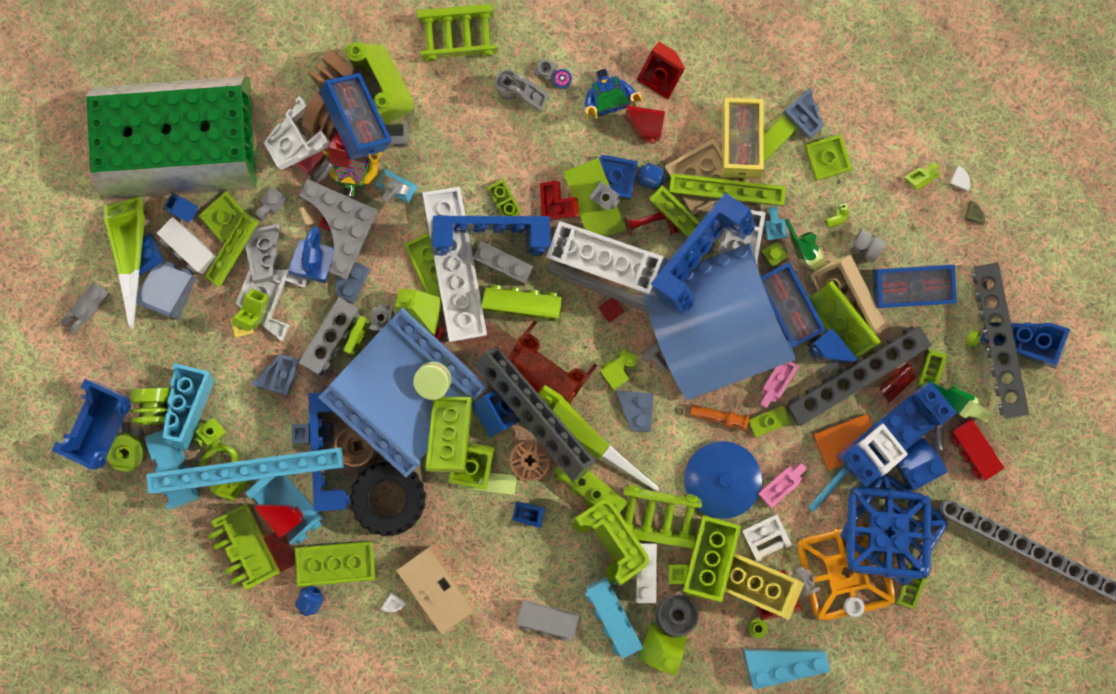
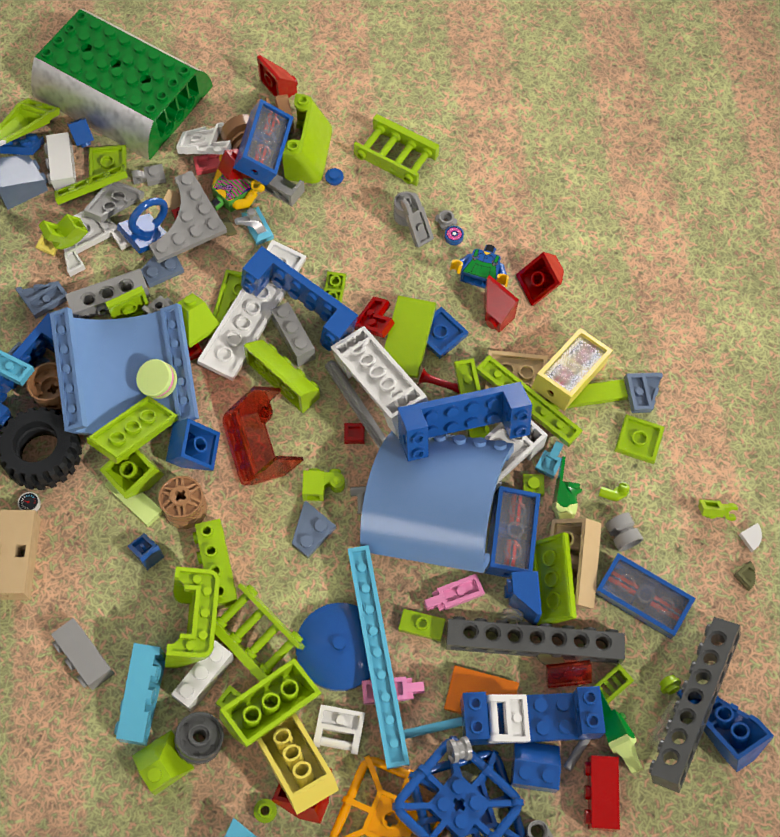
camera: 30 degrees right, 20 degrees down
(304, 35) = (276, 78): none -> red slope
(322, 171) = (208, 175): light grey axle -> none
(412, 542) = (29, 501): none -> black tile
(424, 94) = (334, 176): none -> blue plate
(535, 413) = (217, 463): dark grey brick -> none
(590, 438) = (237, 489): lime plate -> none
(602, 189) = (415, 326): light grey brick -> none
(651, 176) = (470, 348): blue head -> none
(729, 419) = (388, 597): orange pin -> none
(757, 469) = (378, 658): none -> medium azure plate
(808, 580) = (341, 800): light grey brick -> none
(866, 497) = (459, 749): none -> light grey wheel

